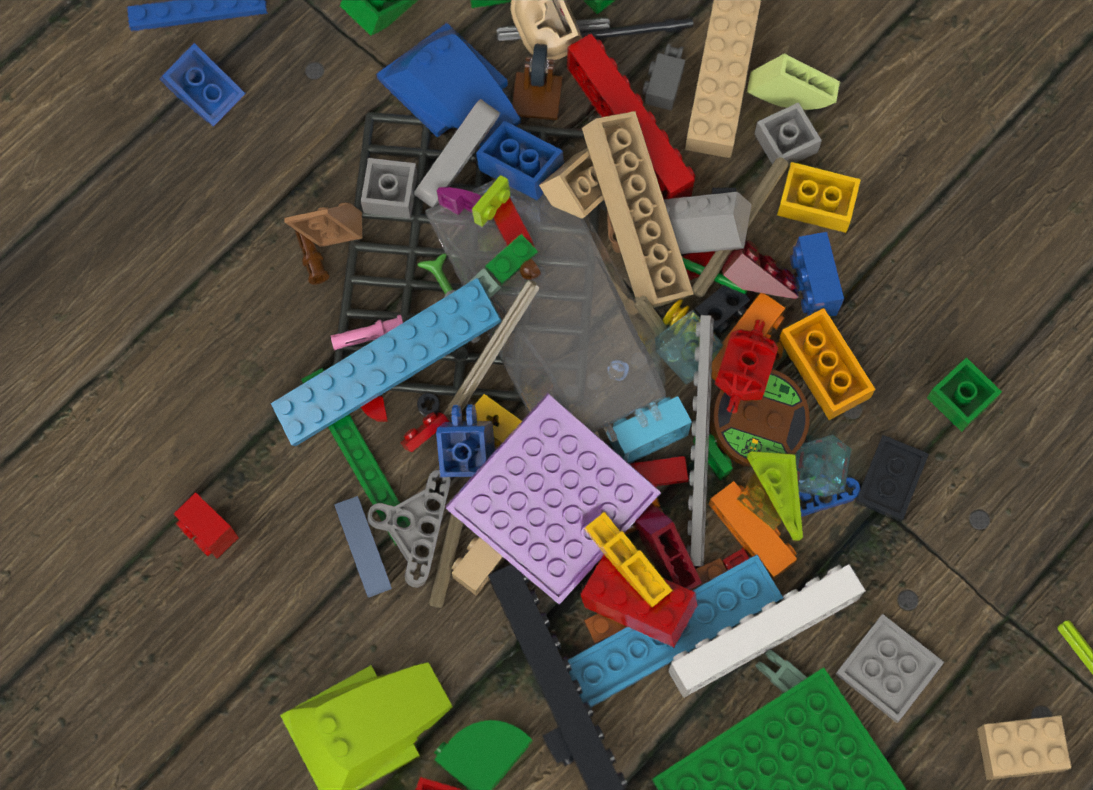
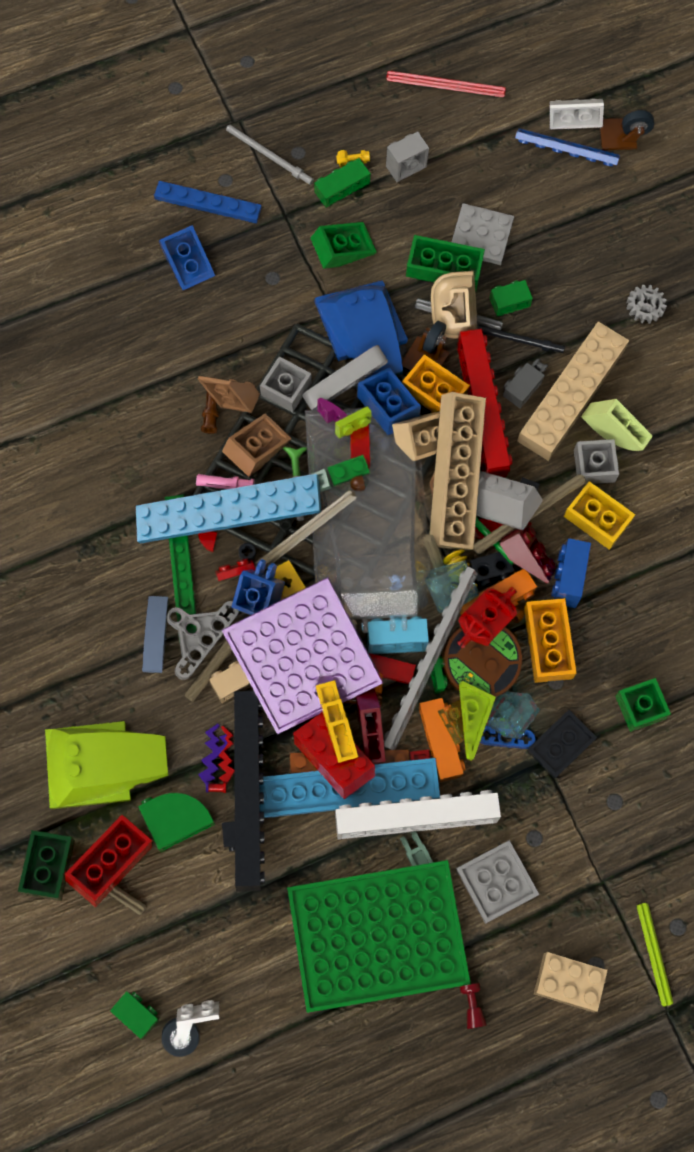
camera: 20 degrees right, 0 degrees up
(210, 530) = (49, 574): red brick -> none
(384, 273) = (255, 444): none -> medium nougat slope
(497, 655) = (217, 752): none -> piece
(560, 120) = (430, 381): none -> light orange brick

